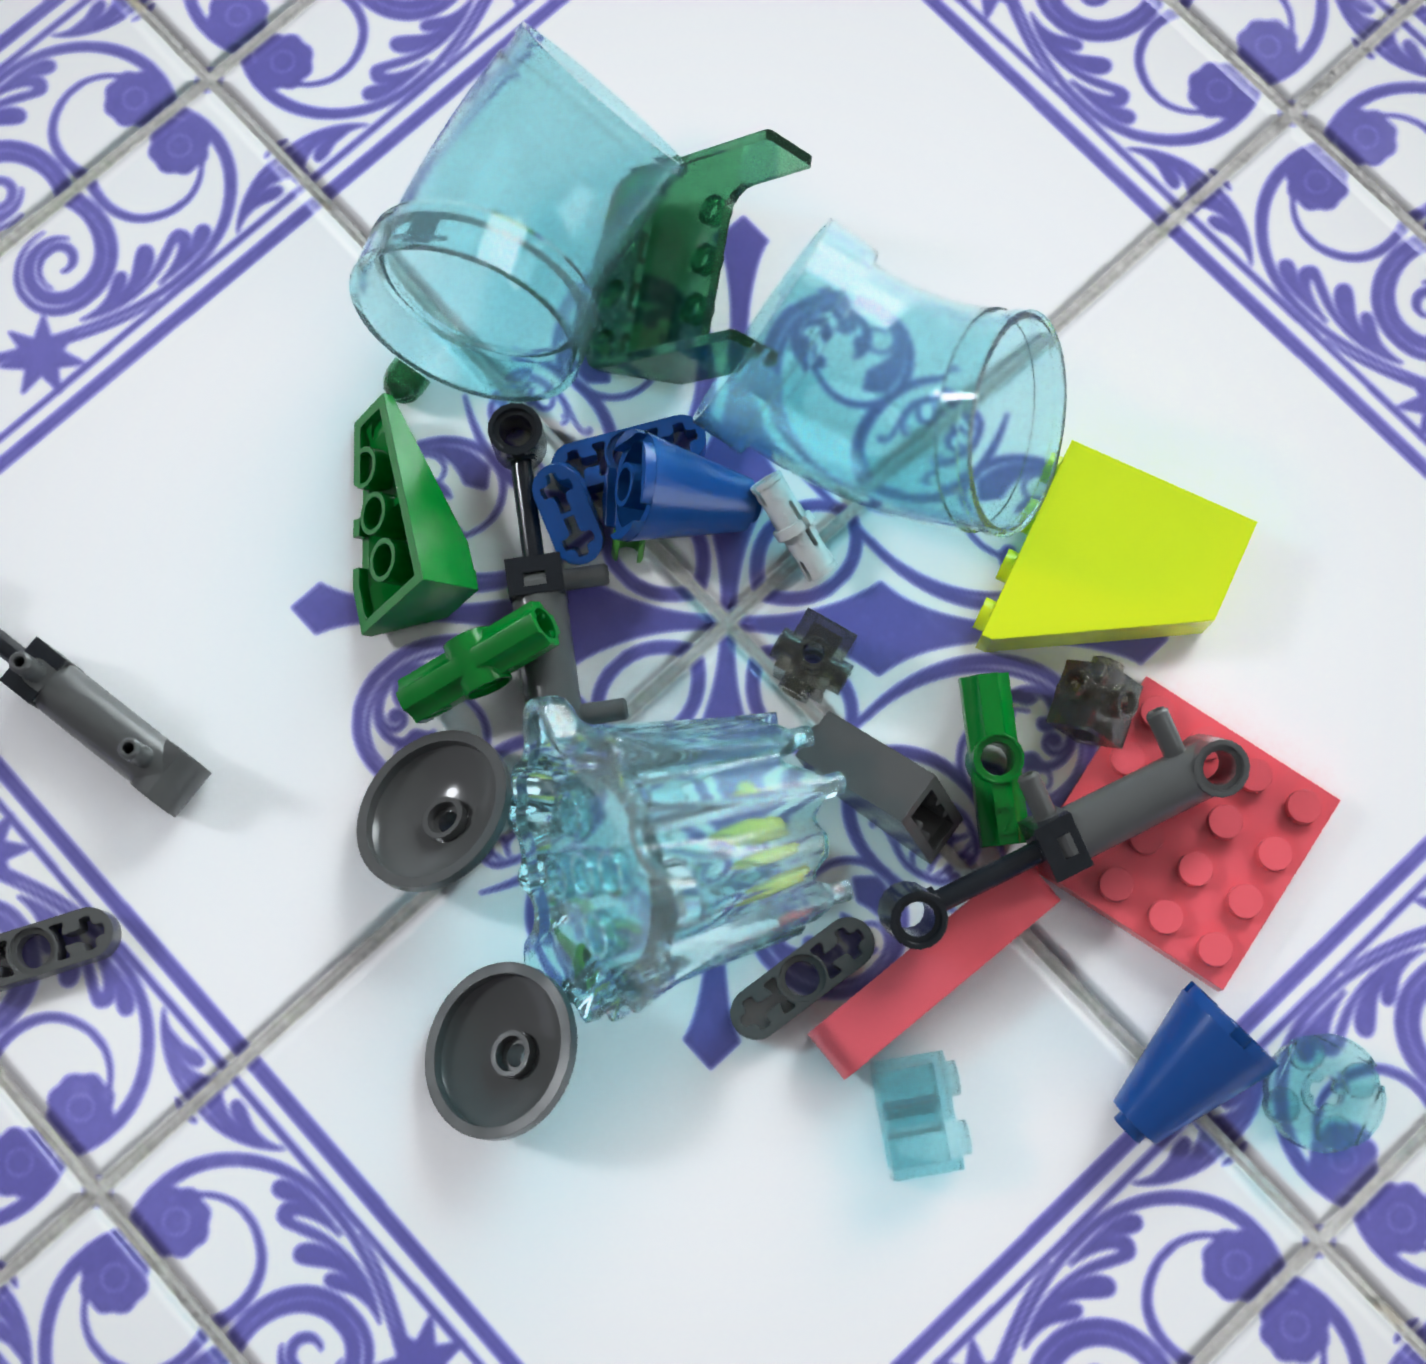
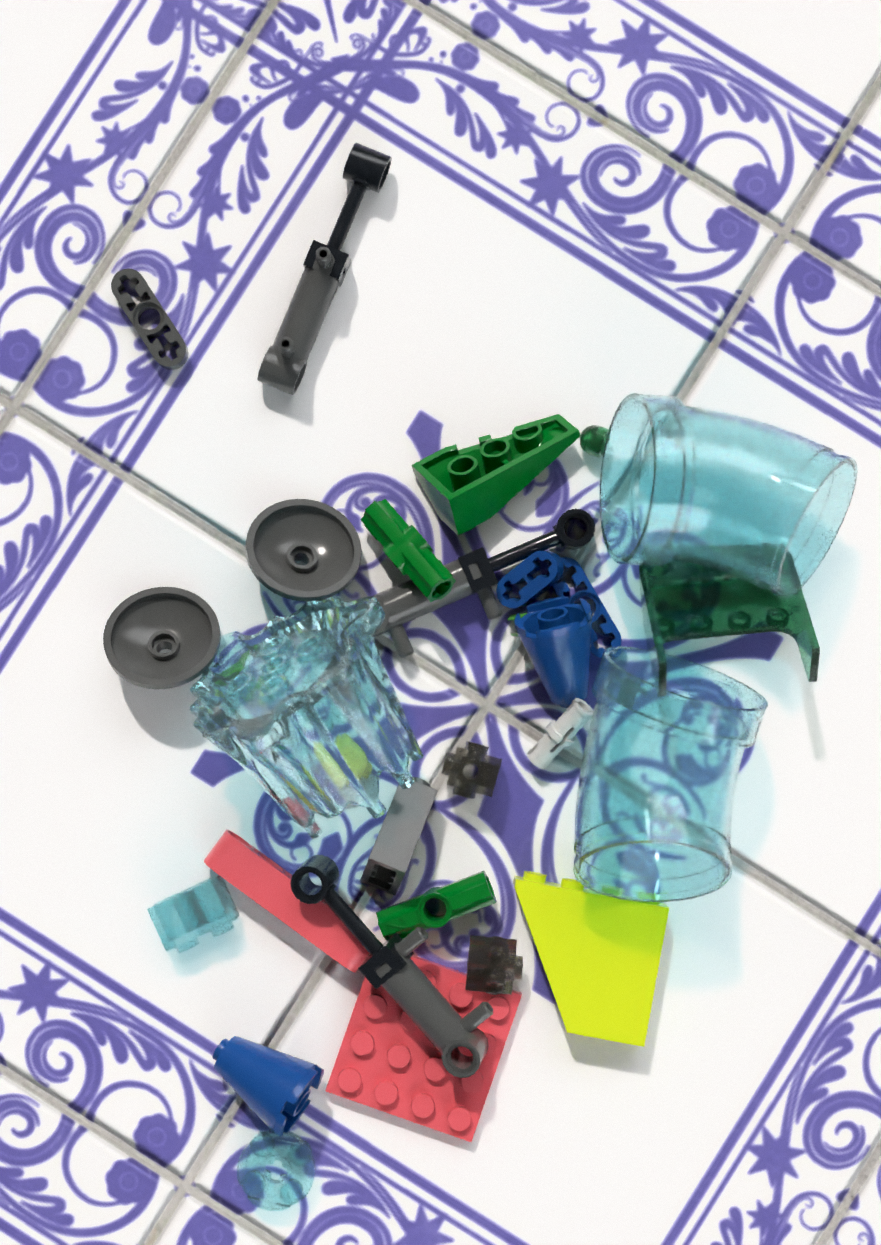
camera: 75 degrees right, 10 degrees up
(844, 964) = (246, 820): dark grey beam -> none

